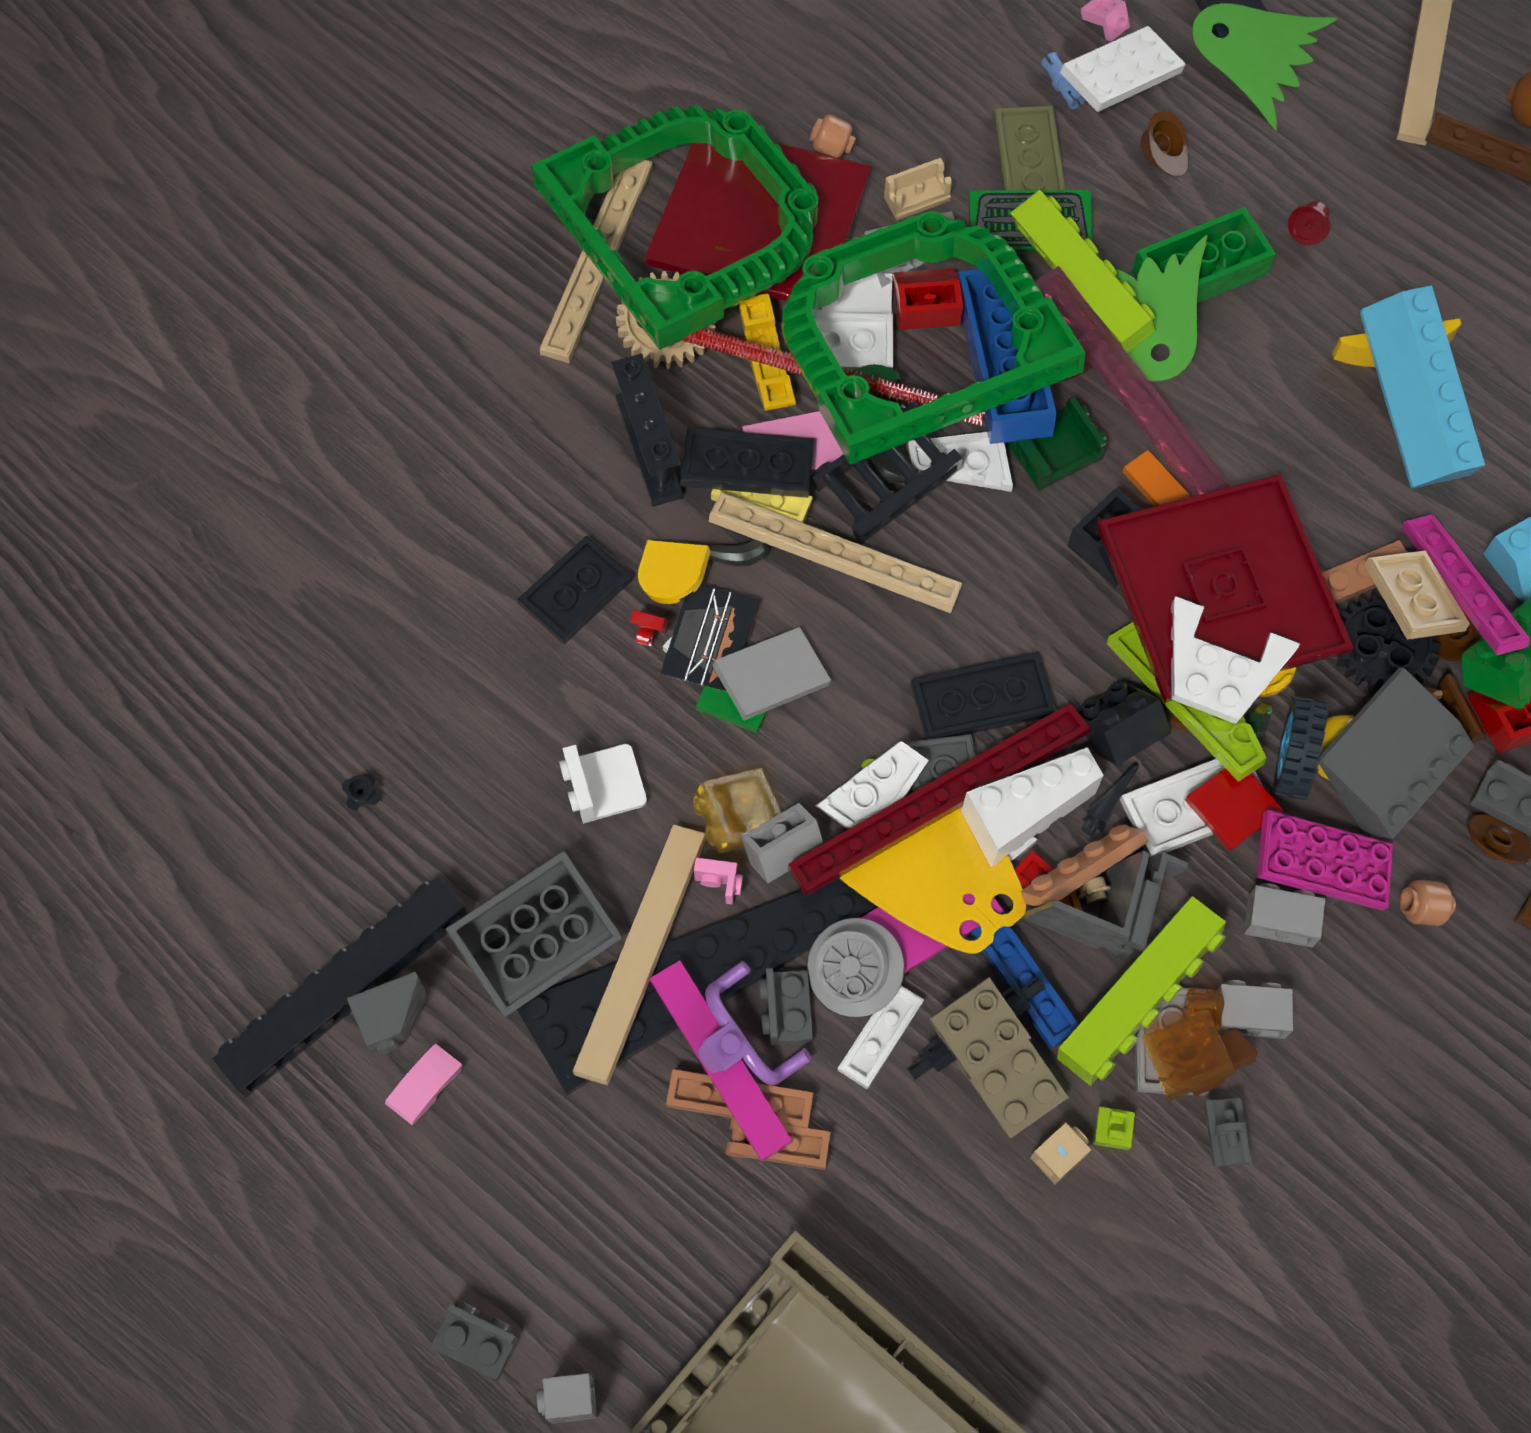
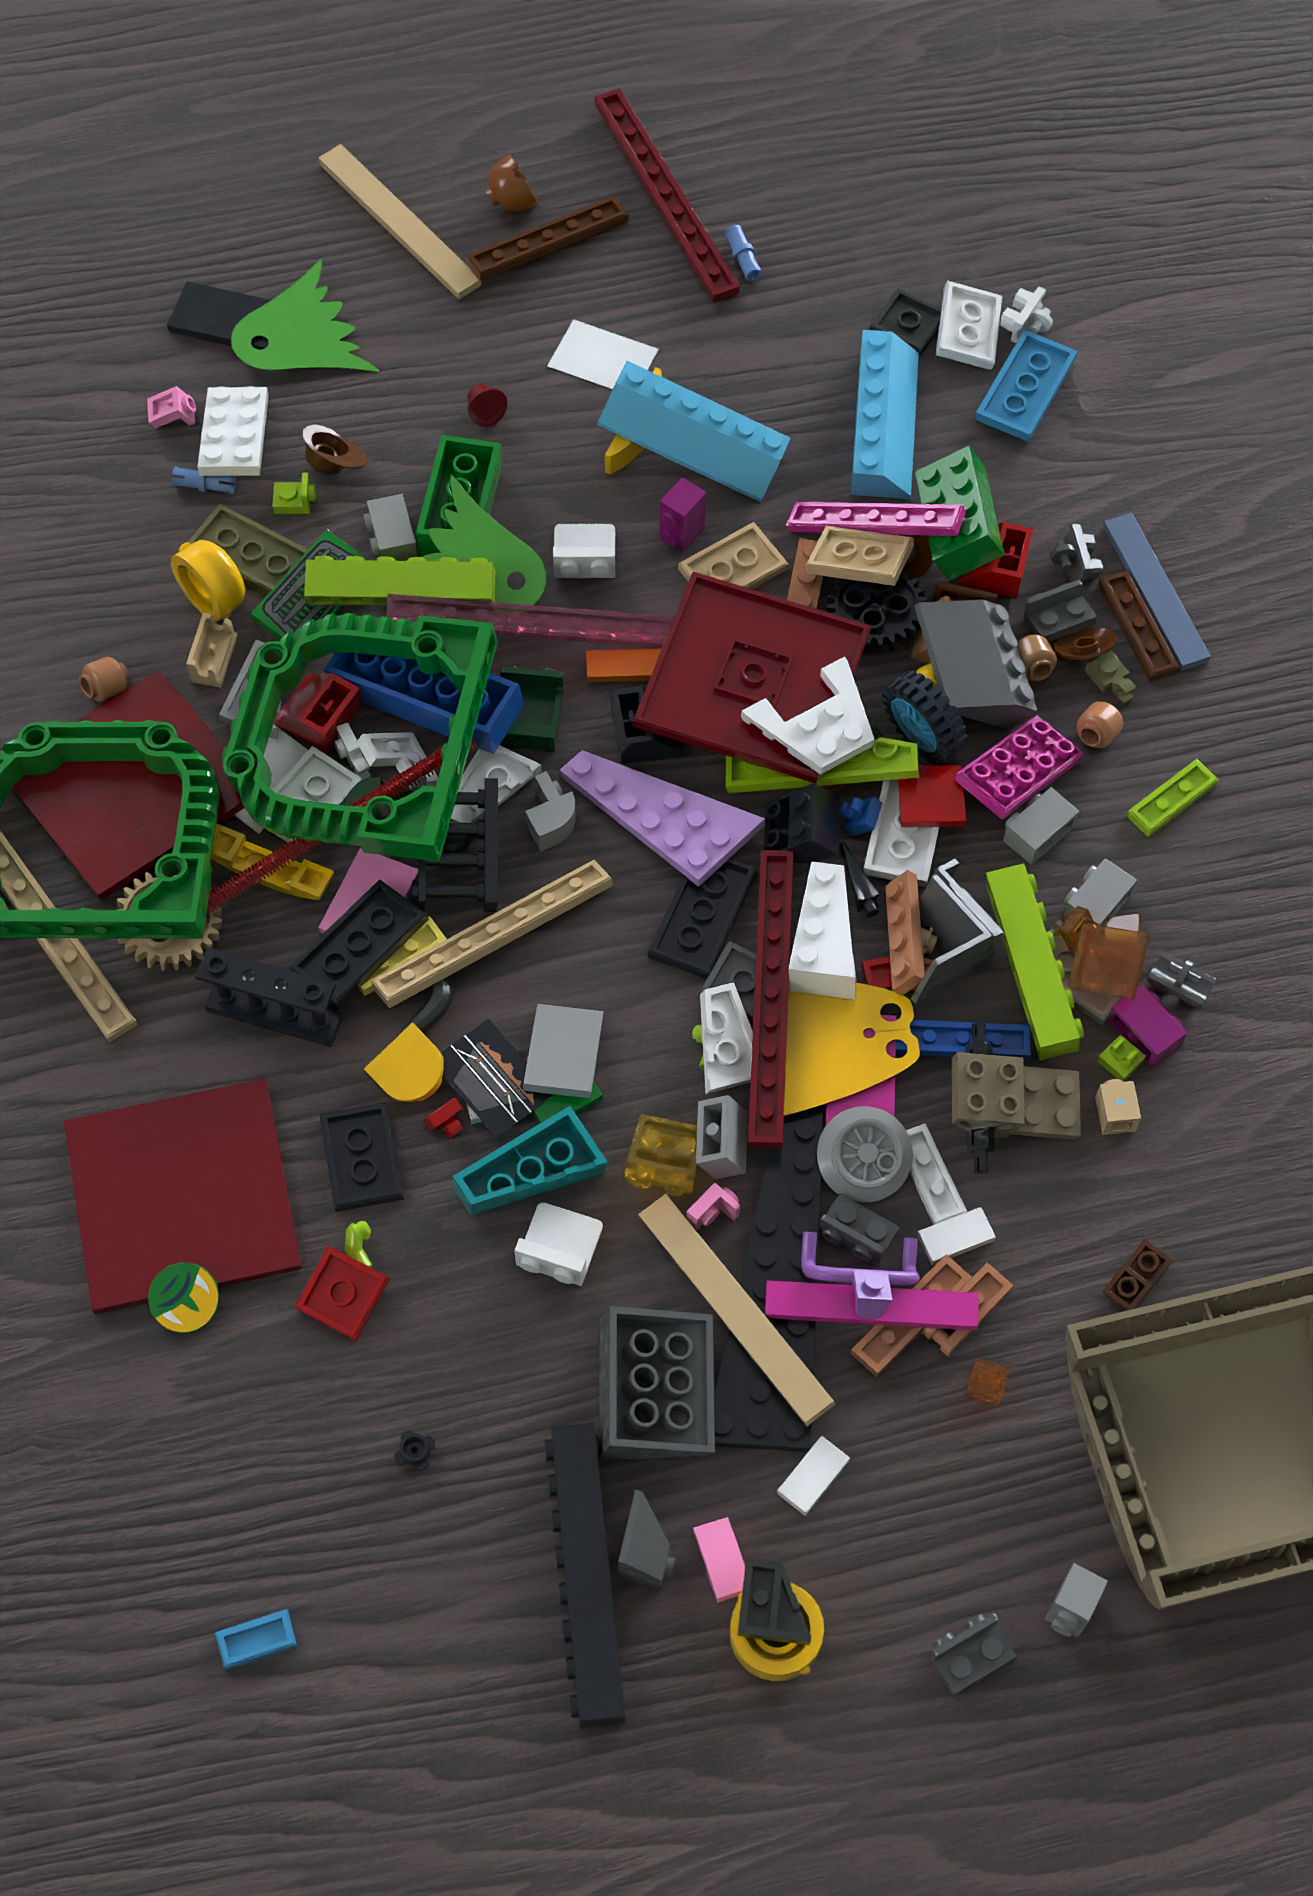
camera: 55 degrees left, 5 degrees down
(139, 782) = (256, 1639): none -> dark azure tile
(363, 1144) = (781, 1662): none -> yellow piece
(367, 545) = (183, 1297): none -> tile
(391, 1142) = (769, 1605): none -> pearl dark grey wing
(450, 652) = (342, 1293): none -> red tile
(452, 488) = (179, 1185): none -> dark red tile
(493, 637) = (353, 1242): none -> lime arm
(545, 1110) = (813, 1475): none -> white tile
(654, 714) = (531, 1164): none -> teal wedge
(727, 1202) = (988, 1381): none -> clear orange tile
(840, 1091) = (956, 1235): none -> white tile
(913, 341) = (348, 747): none -> white plate
(915, 1271) = (1138, 1275): none -> reddish brown slope
(932, 368) = (394, 750): none -> white plate
(974, 141) = (208, 578): none -> yellow piece
(974, 529) = (554, 818): none -> light grey brick
(1044, 620) = (674, 822): none -> lavender wing
(1104, 150) = (294, 496): none -> lime bracket
(1135, 230) = (390, 528): none -> light grey brick
(1160, 1131) = (1148, 1026): none -> magenta brick
(1171, 760) = (860, 815): none -> blue tile
(1239, 386) = (584, 551): none -> white bracket
(1333, 433) = (682, 515): none -> magenta brick
(1333, 507) = (740, 558): none -> tan tile
(1411, 1013) = (1172, 798): none -> lime tile
(1443, 265) = (598, 354): none -> white sticker
(1448, 805) = (1037, 657): none -> medium nougat head
(1490, 881) = (1111, 674): none -> olive plate

